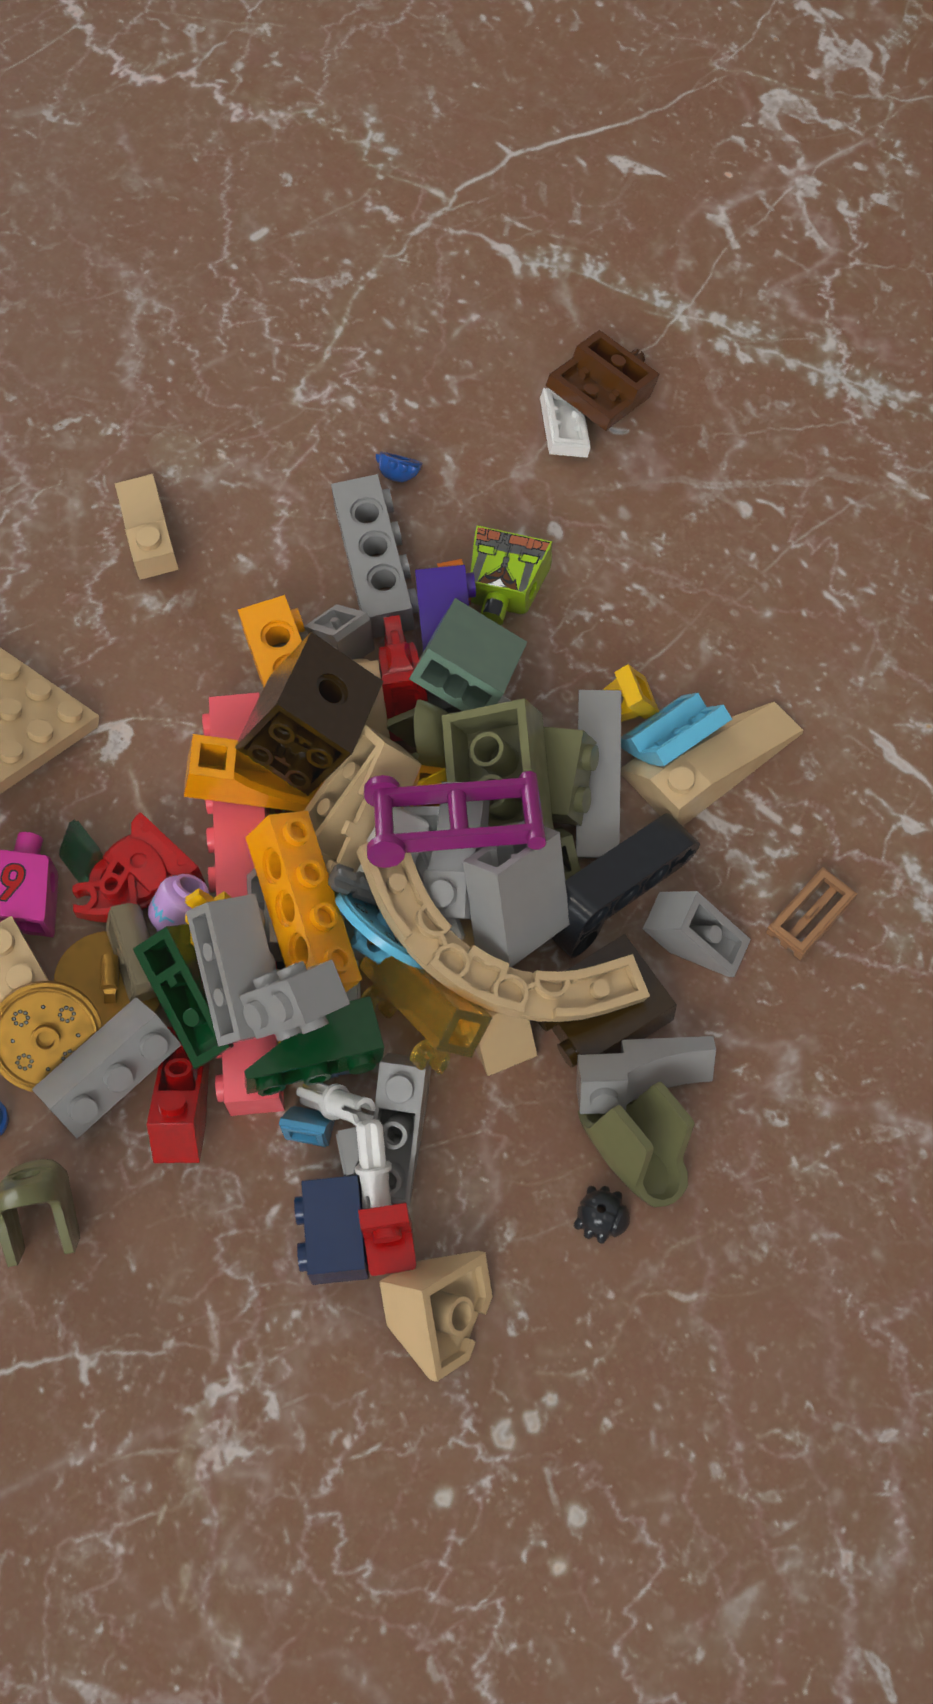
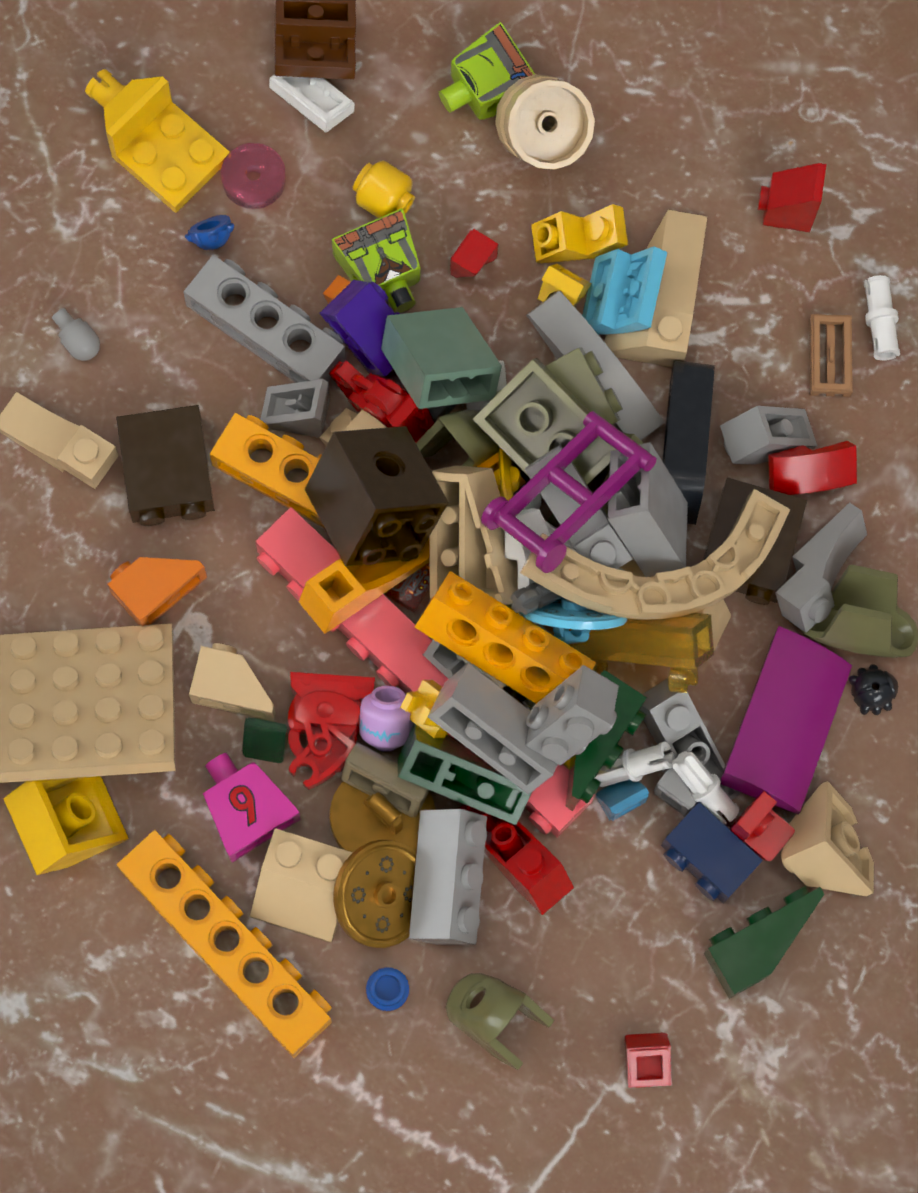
camera: 50 degrees left, 10 degrees up
(94, 788) = (228, 684): none -> tan slope
(110, 678) = (154, 585): none -> orange slope
(127, 1358) = (648, 1060): none -> red slope
(201, 599) = (165, 465): none -> dark brown brick
(233, 467) = (77, 336): none -> light grey cylinder
(300, 1344) = (755, 951): none -> dark green slope
(420, 372) = (156, 138): none -> yellow plate
(465, 436) = (253, 158): none -> clear pink piece
(496, 1173) = (786, 720): none -> magenta slope
(555, 520) = (383, 189): none -> yellow head
(579, 618) = (473, 254): none -> red slope
(676, 667) = (579, 238): none -> yellow slope
(709, 989) = (810, 471): none -> red slope
(716, 502) = (485, 73): none -> lime torso
(723, 530) = (548, 143): none -> tan wheel
(882, 914) = (881, 317): none -> white pin
(886, 762) = (793, 197): none -> red slope

